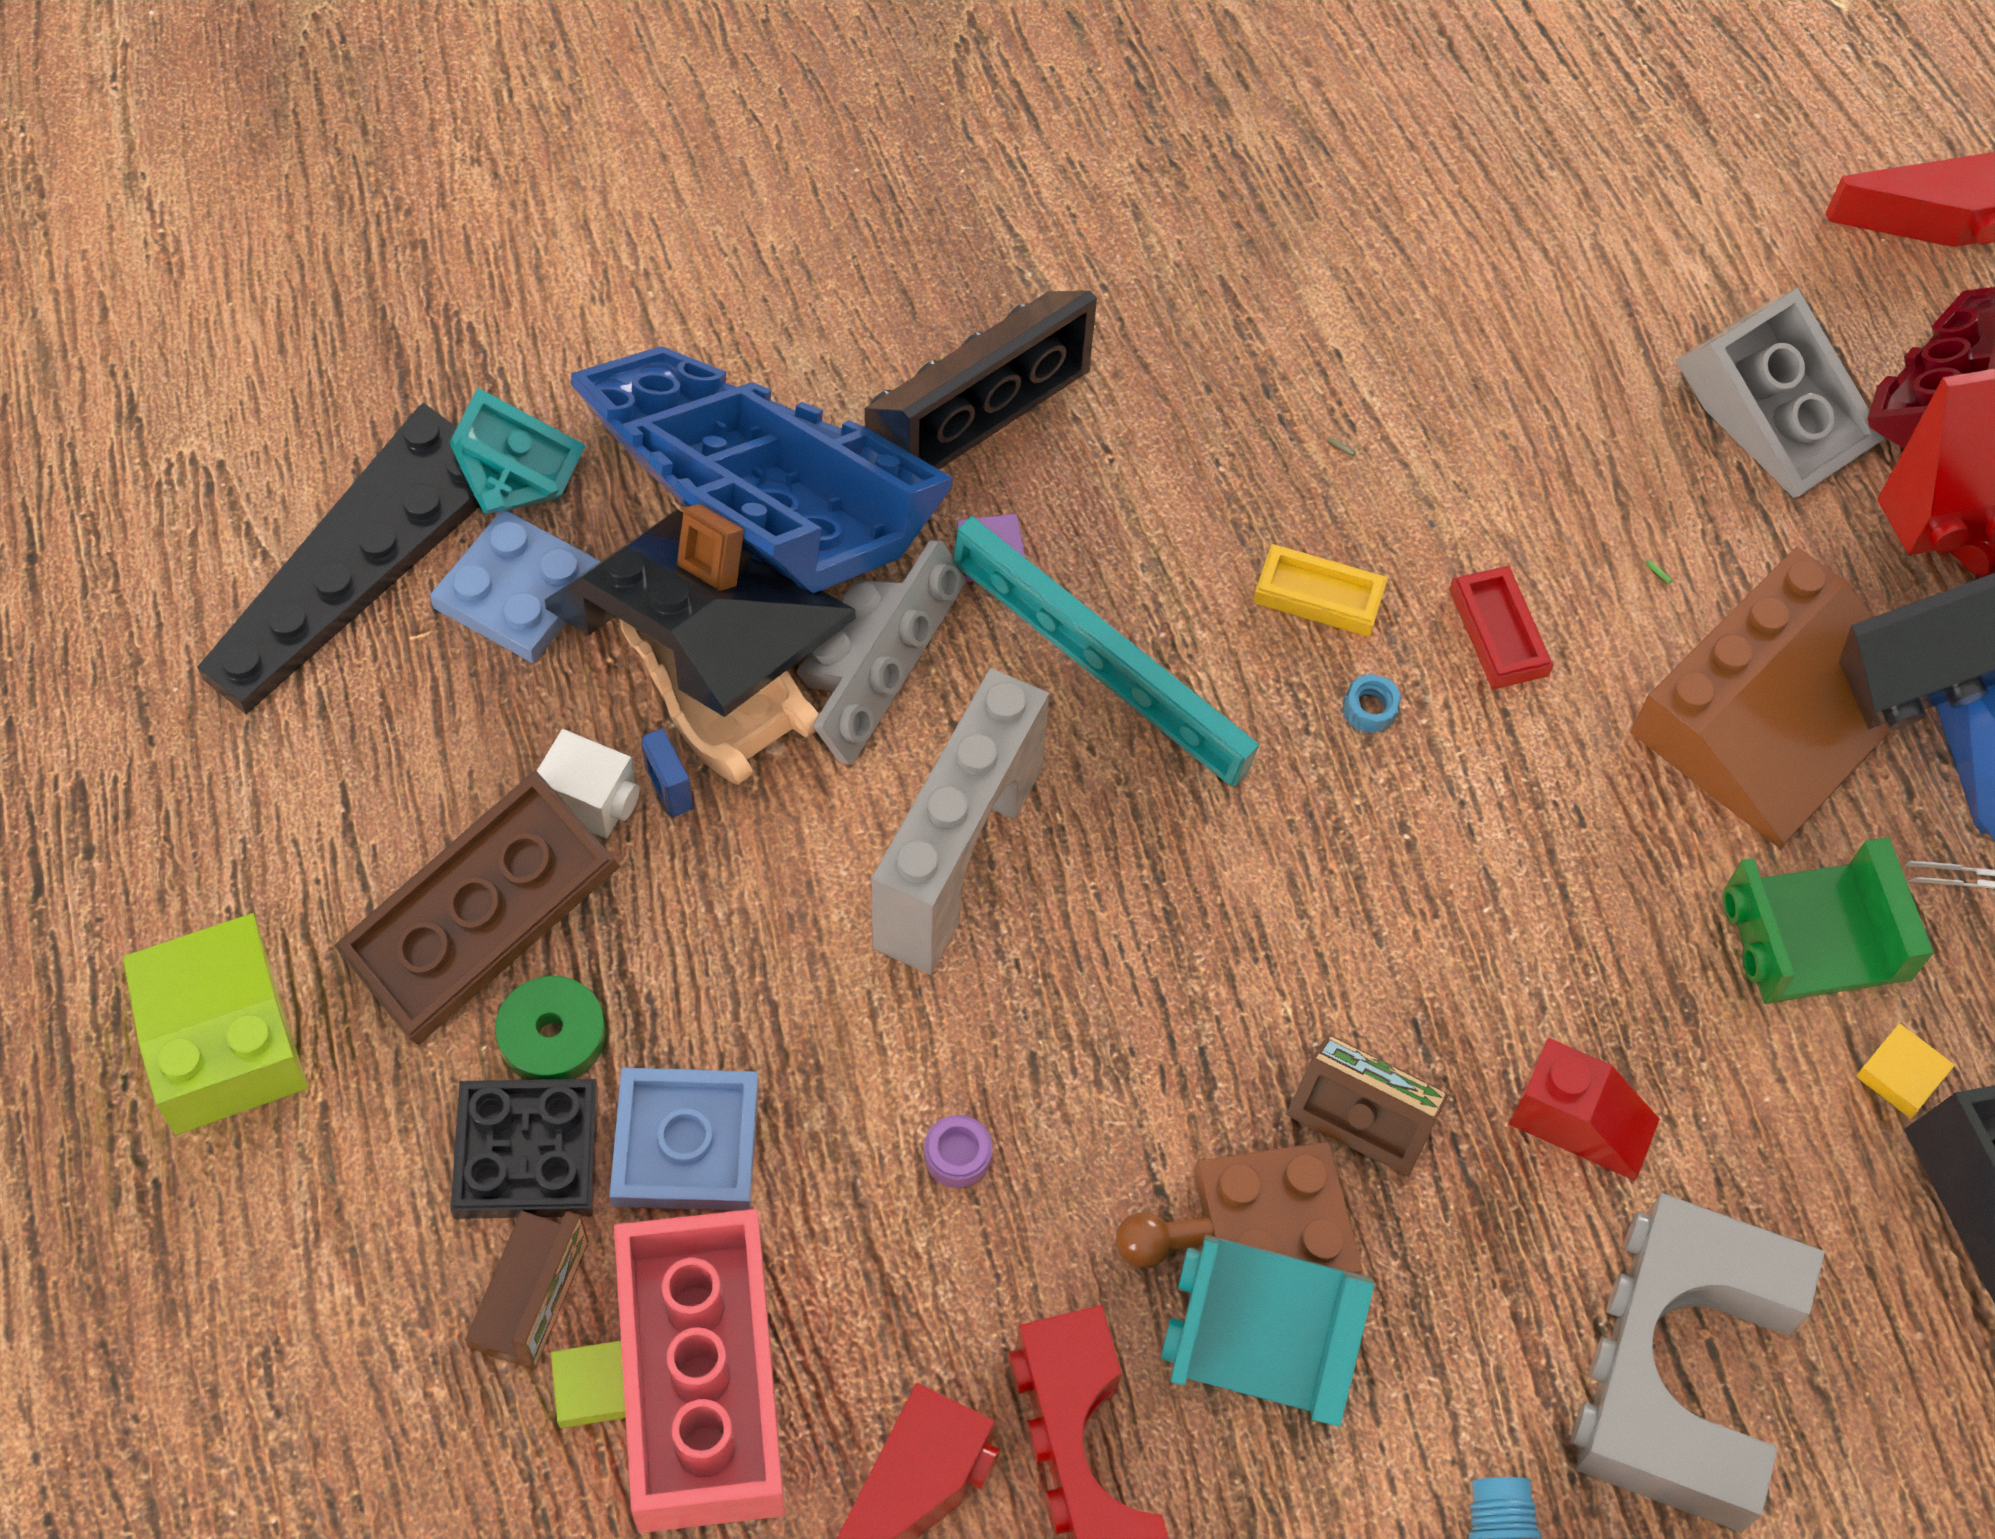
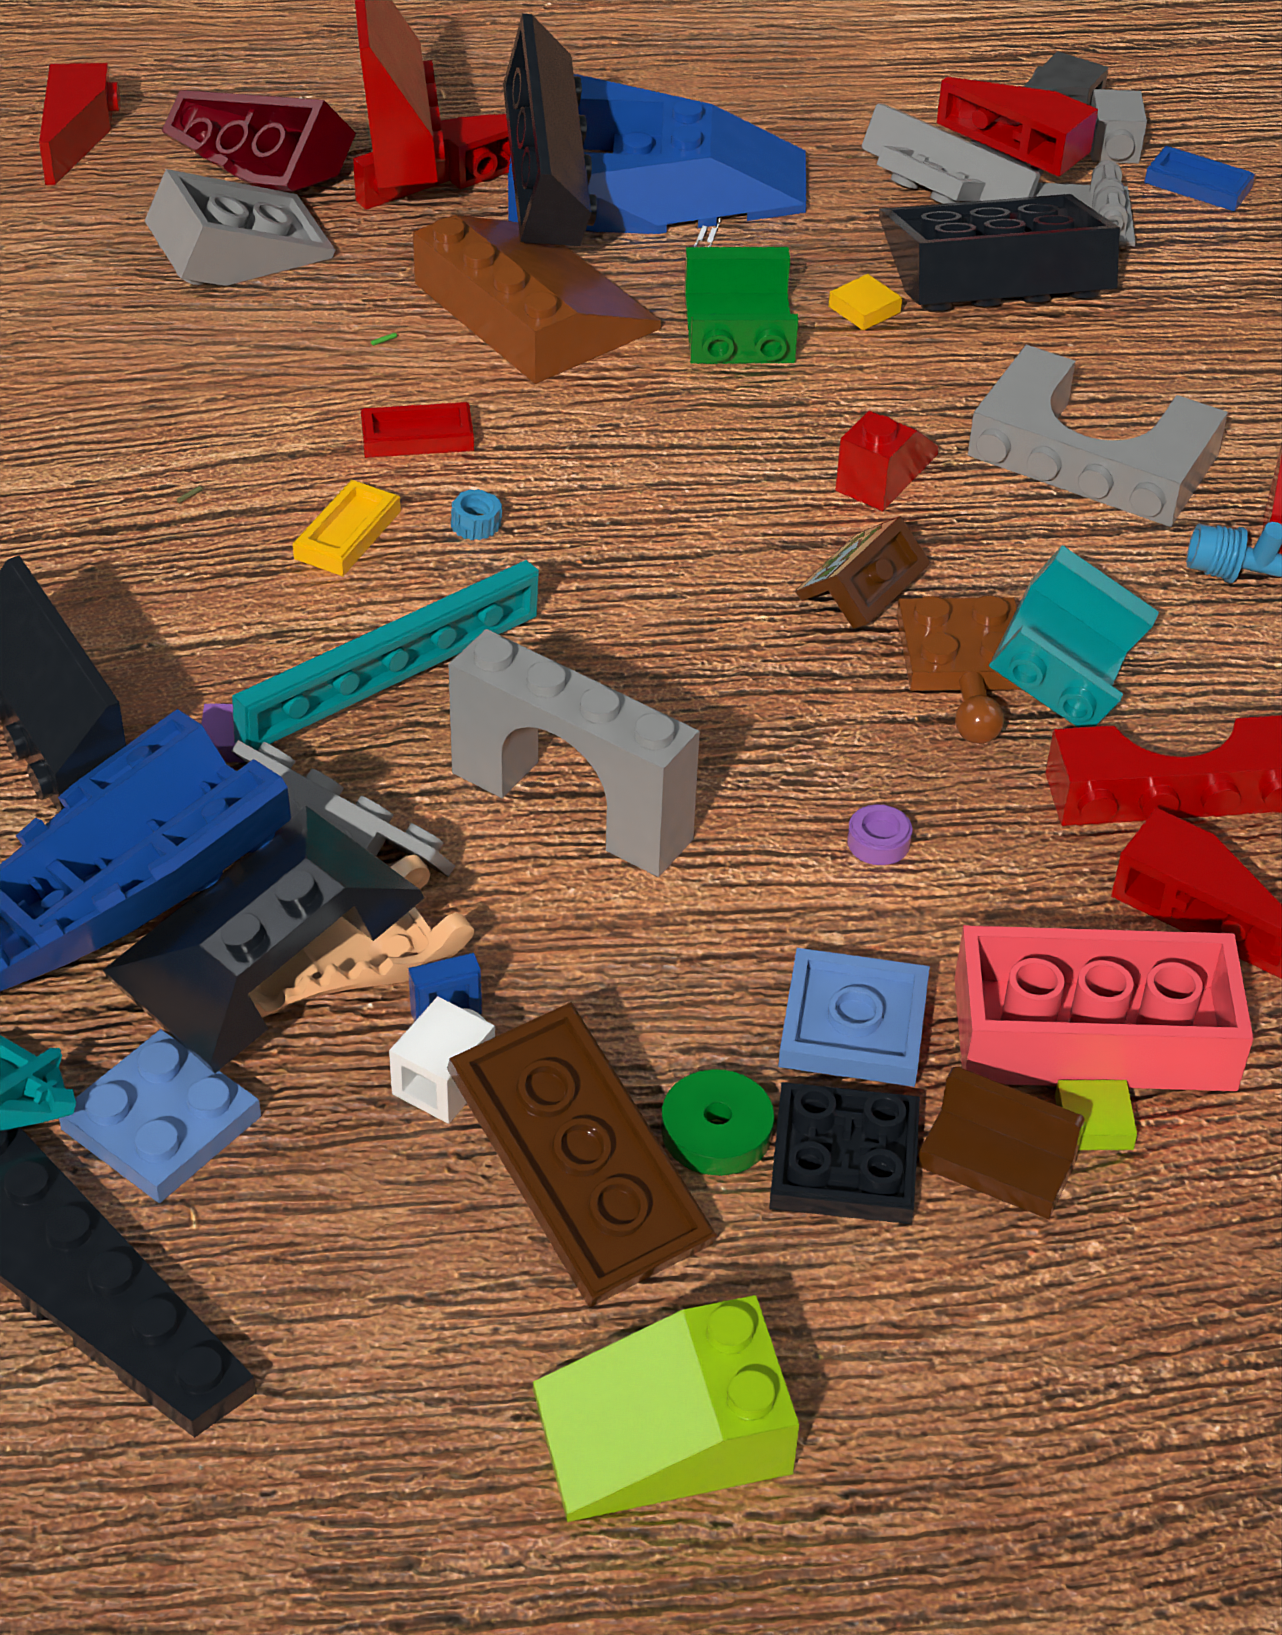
camera: 80 degrees left, 15 degrees down
(710, 547) = (241, 856): dark orange tile -> none

